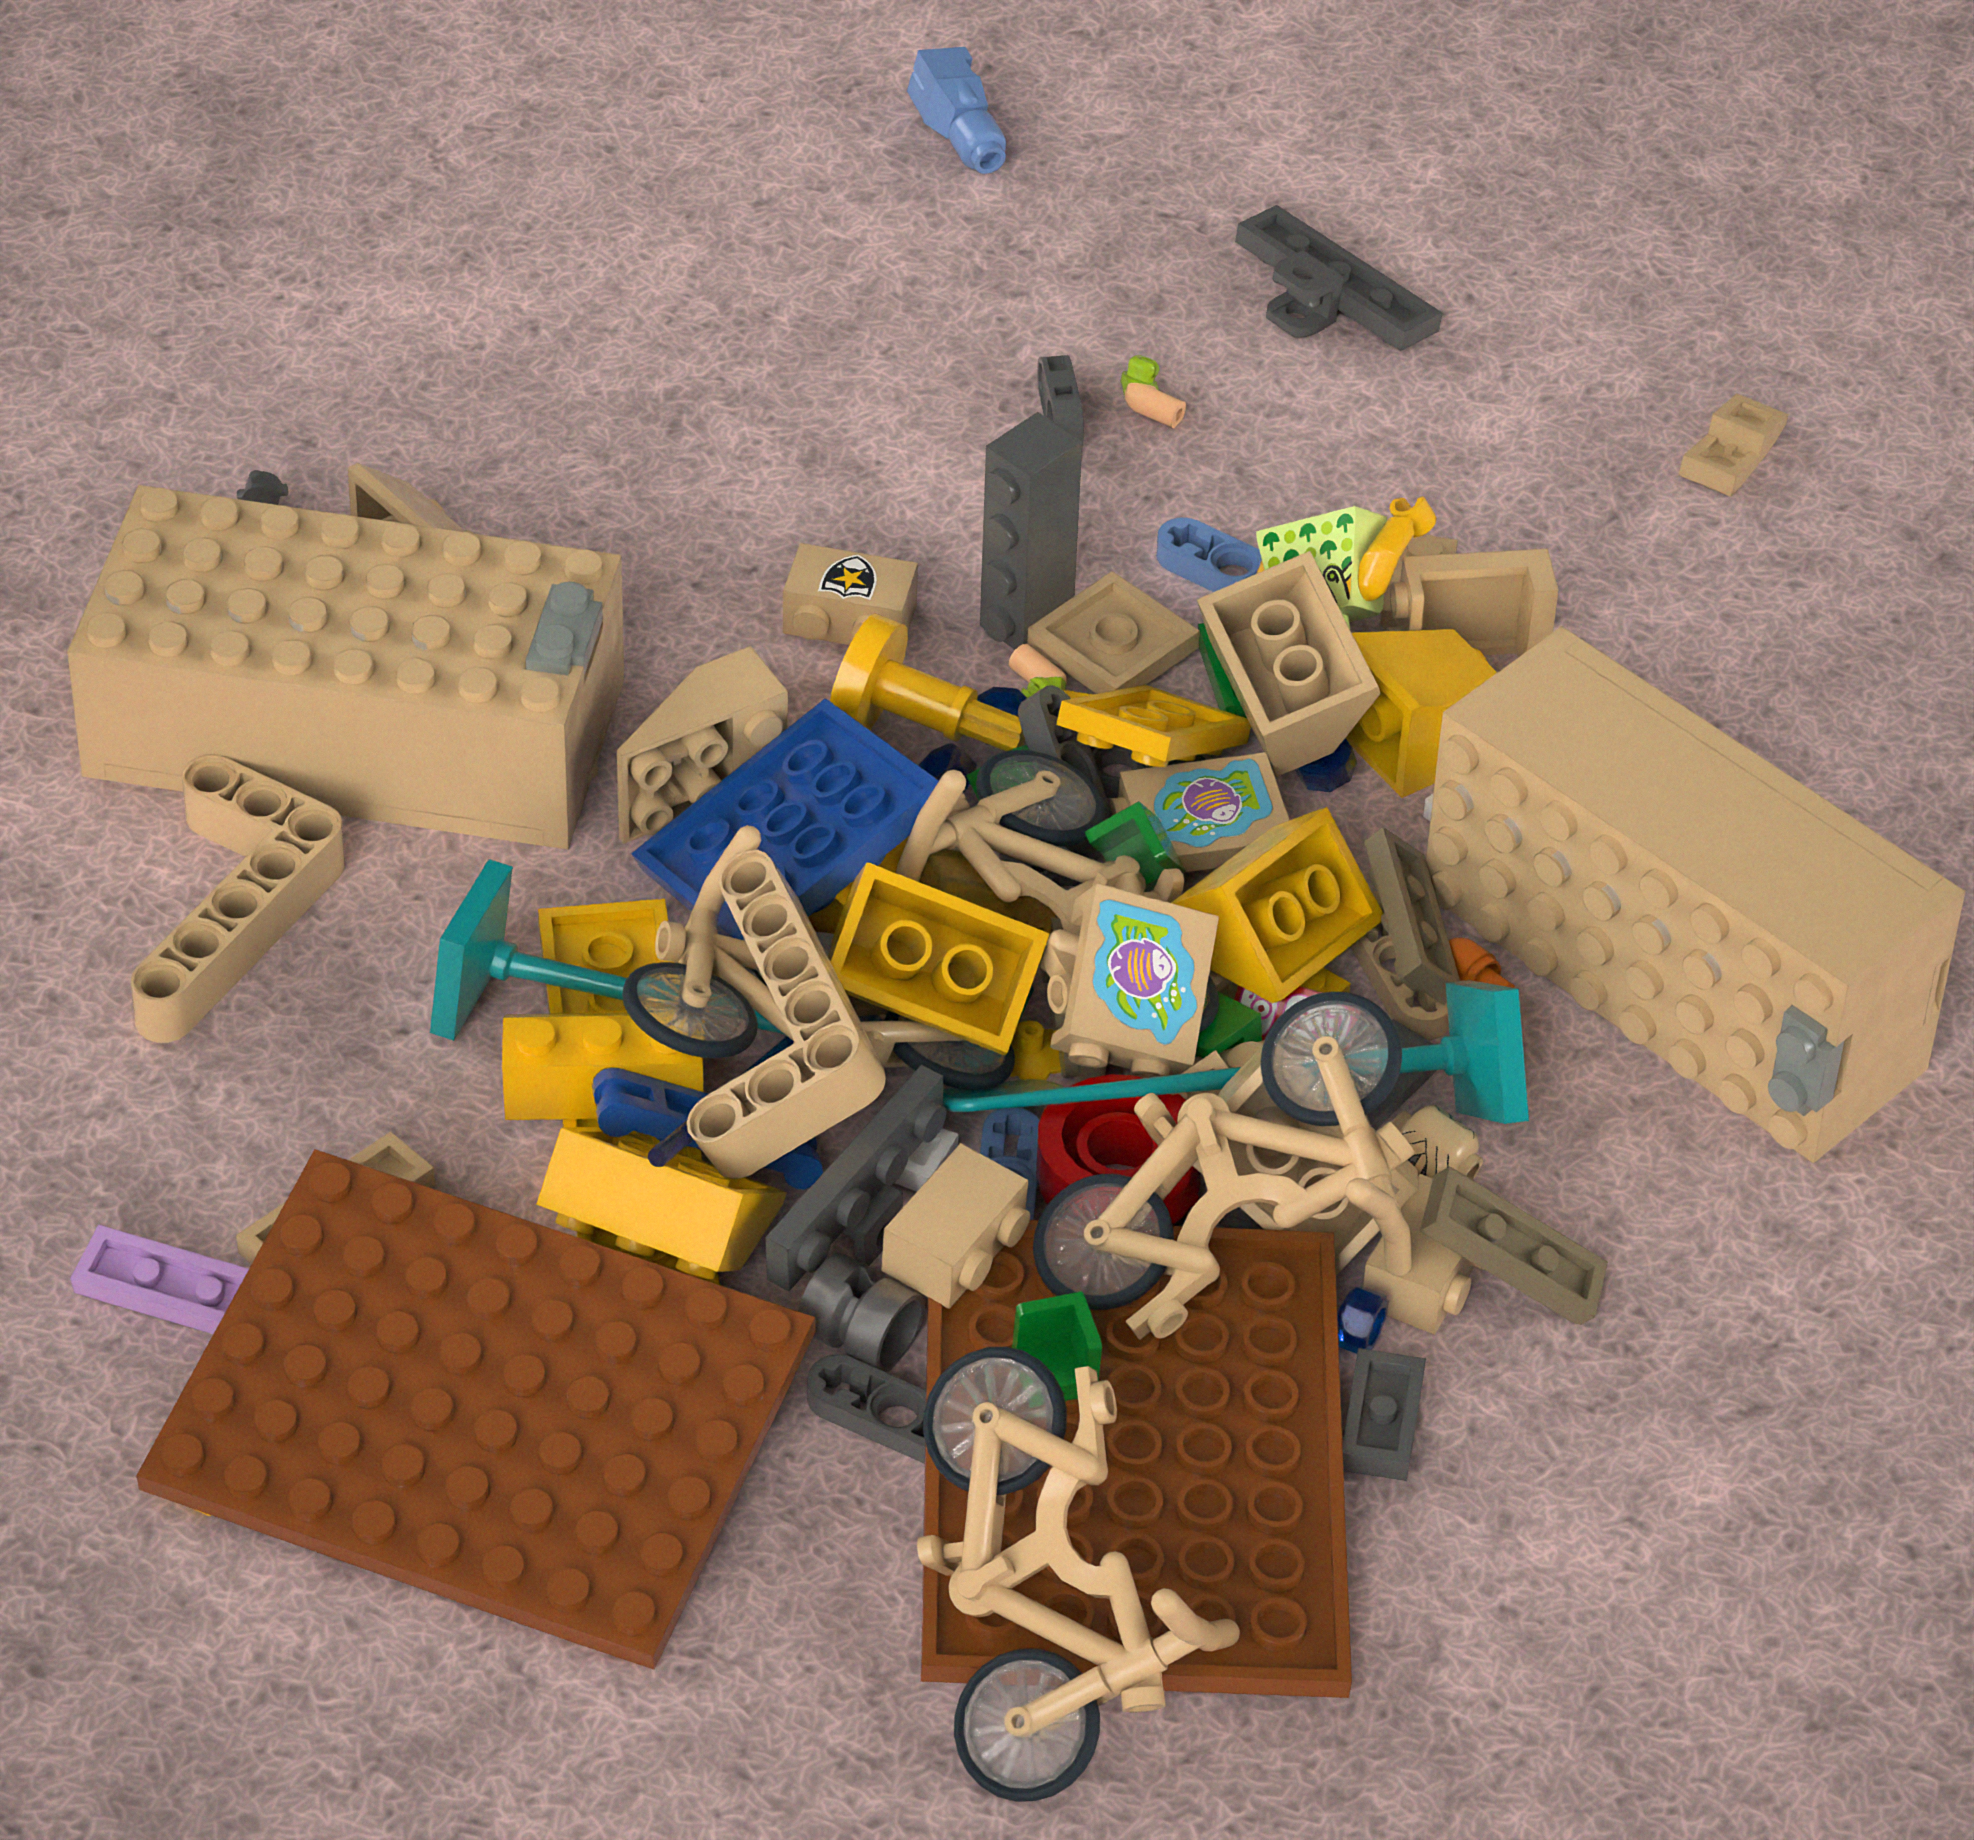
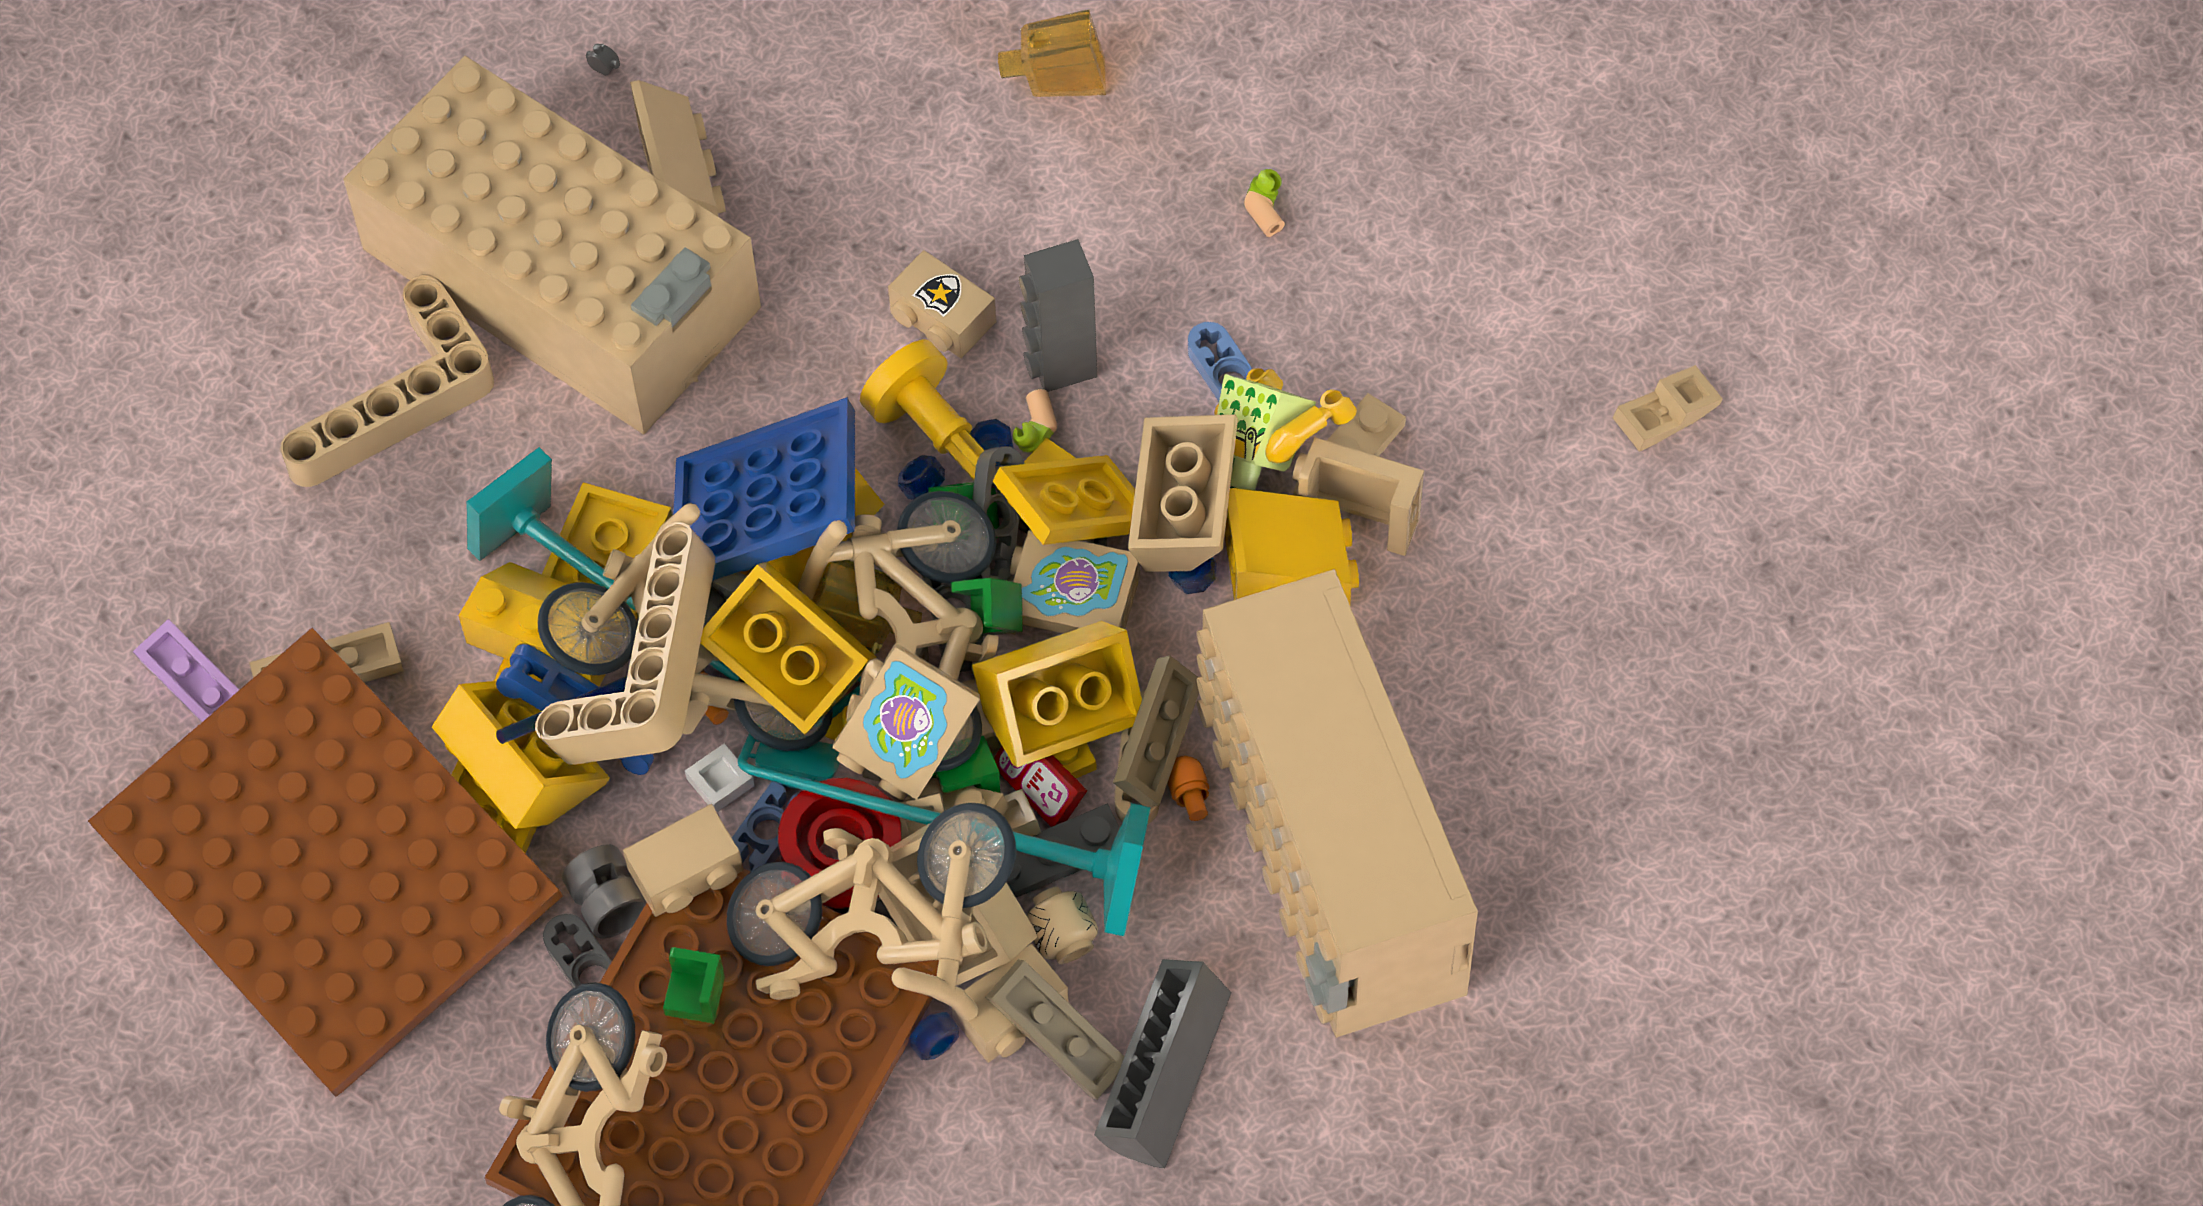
camera: 30 degrees right, 15 degrees up
(697, 739) = (749, 392): tan slope -> none
(824, 317) = (1058, 57): none -> clear yellow torso
(856, 1188) = (648, 799): dark grey plate -> none
(1060, 394) = (1191, 188): dark grey piece -> none
(1113, 636) = (1104, 405): tan plate -> none
(1329, 279) = (1453, 151): dark grey plate -> none
(1382, 1414) = (904, 1114): dark grey plate -> none
(1645, 1249) = (1163, 1062): none -> dark grey brick

